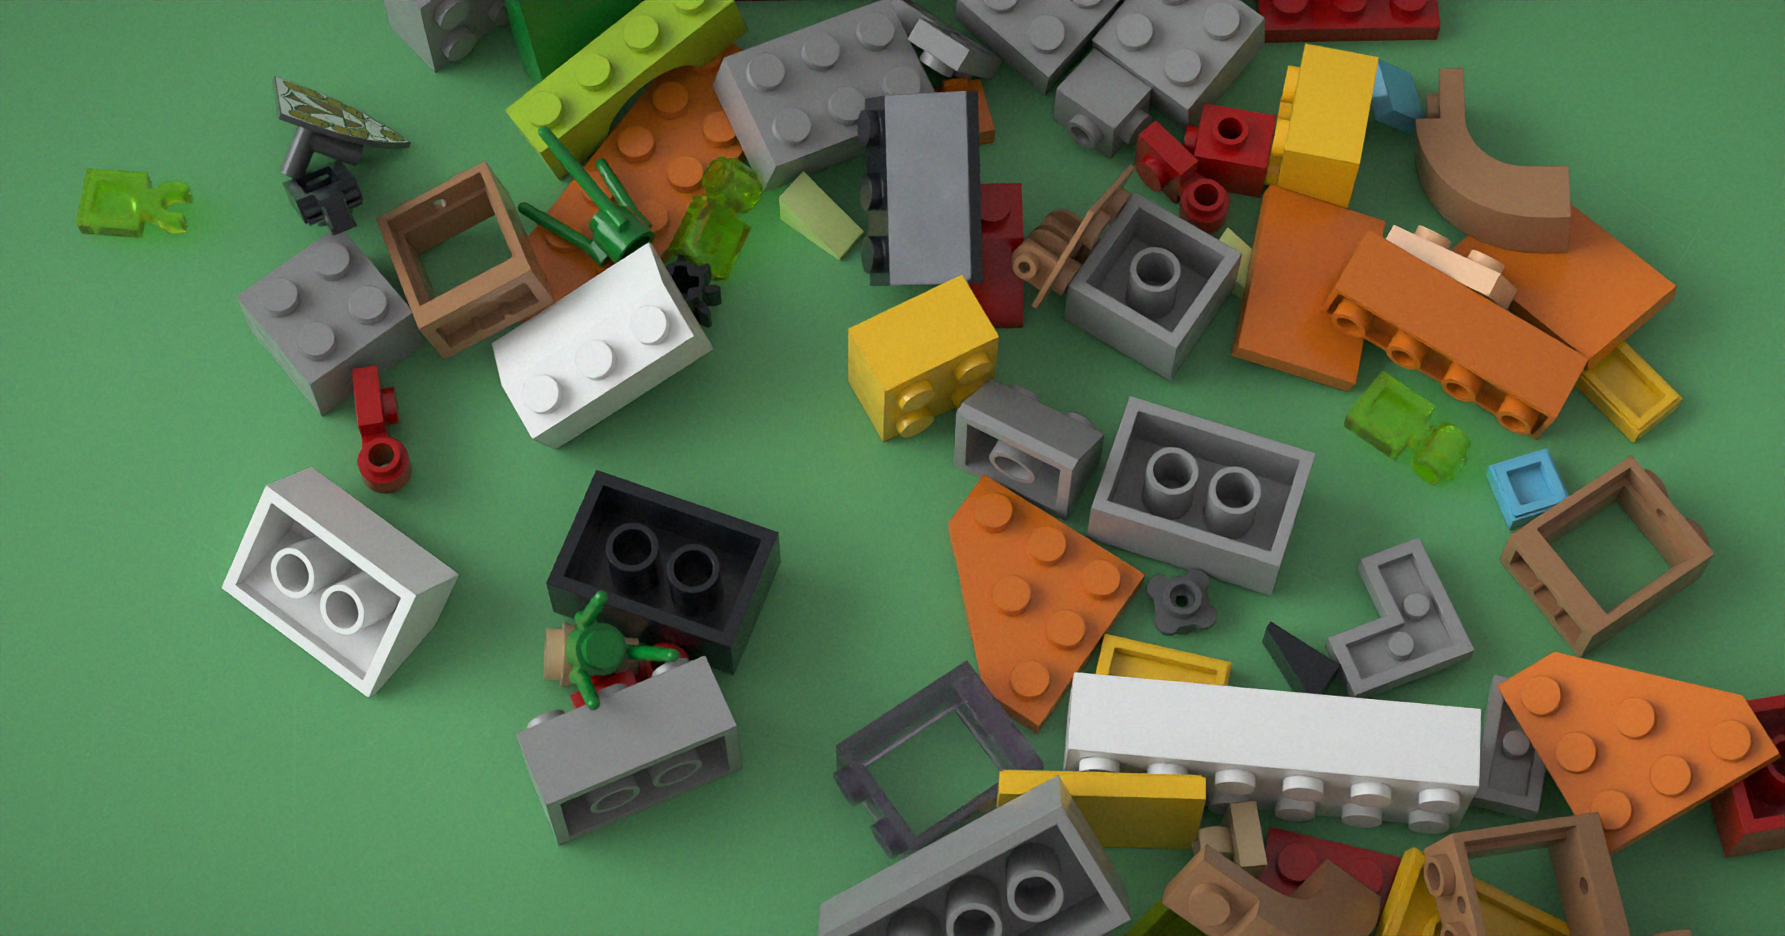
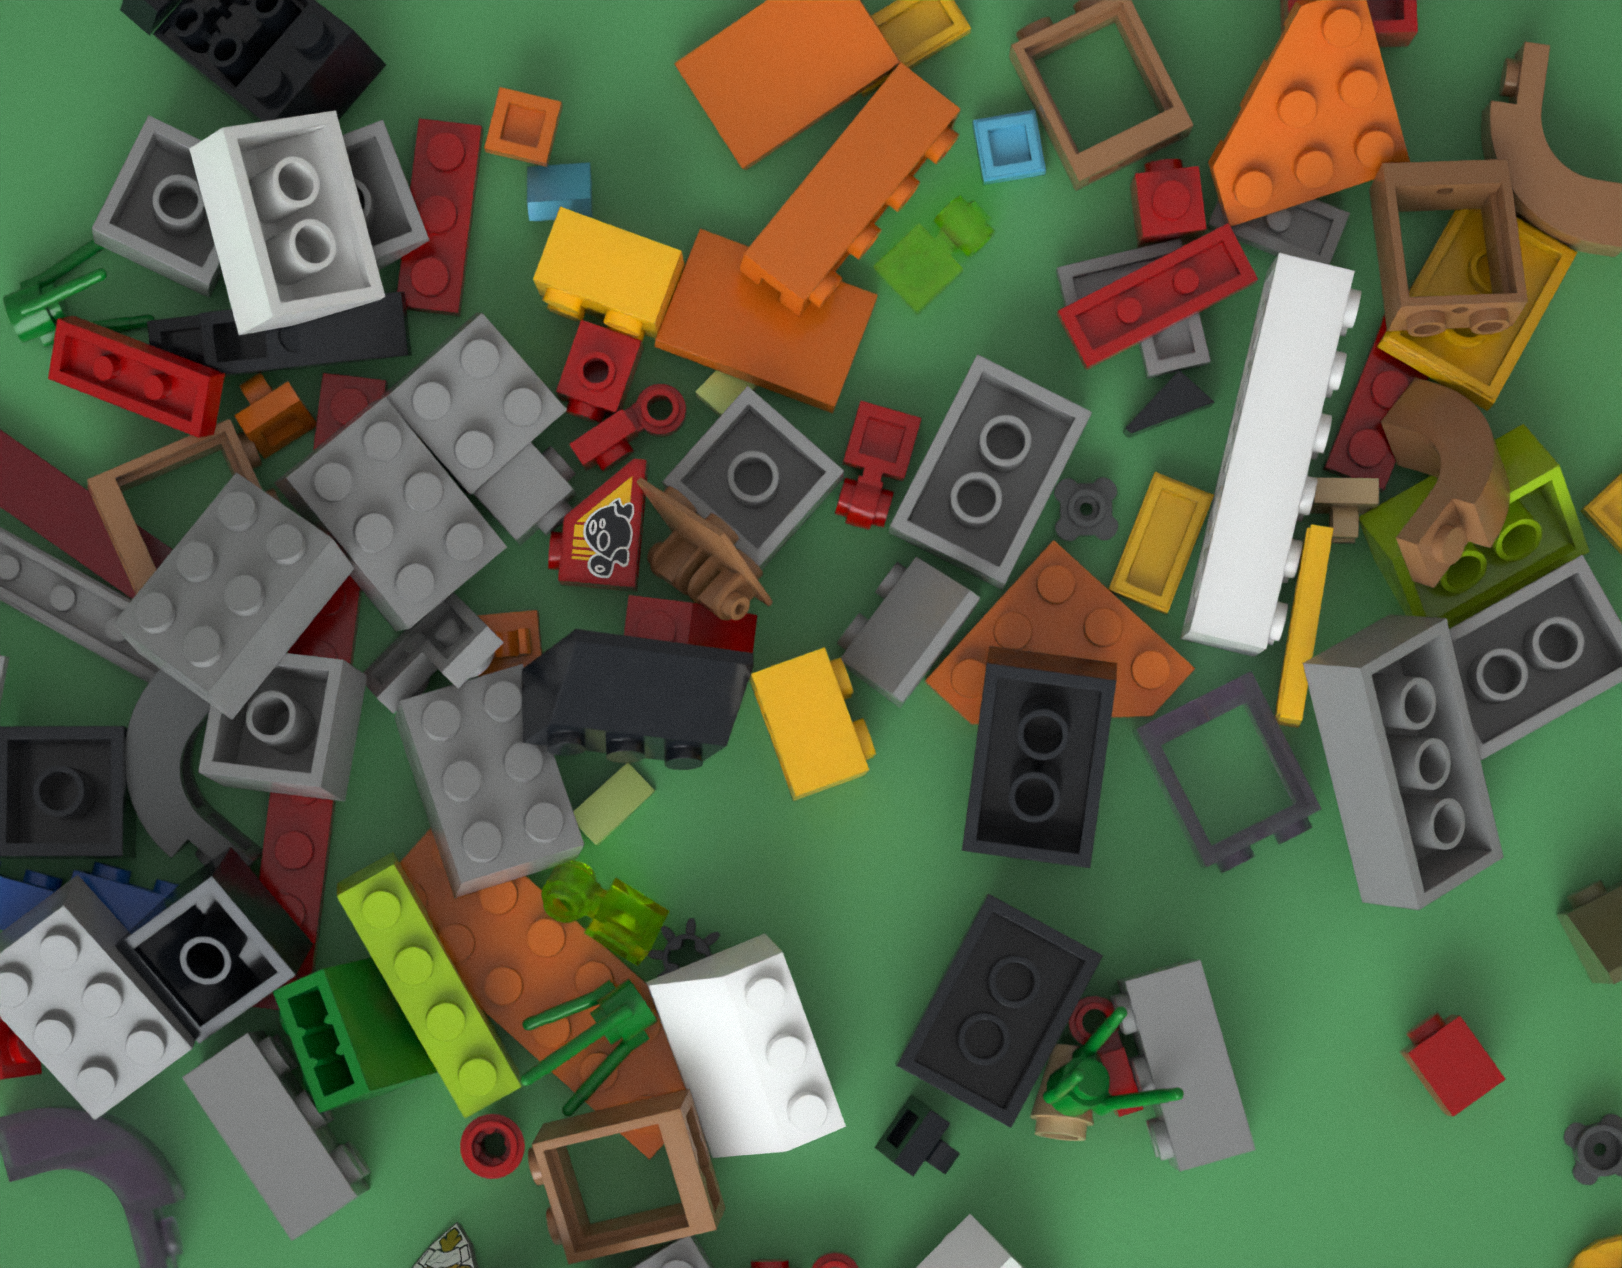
camera: 80 degrees left, 20 degrees up
(482, 137) = (476, 1155): none -> red cone
(527, 525) = (916, 1138): none -> black tile
(923, 569) = (1040, 756): none -> black brick
(1073, 169) = (603, 535): none -> slope
(1204, 393) = (880, 447): none -> red plate
(1409, 623) = (1157, 296): none -> red plate
(1446, 46) = (523, 127): none -> orange tile
(1476, 271) = (789, 159): light nougat plate -> none
(1482, 196) = (705, 123): medium nougat arch -> none
(1506, 631) = (1167, 203): none -> red brick

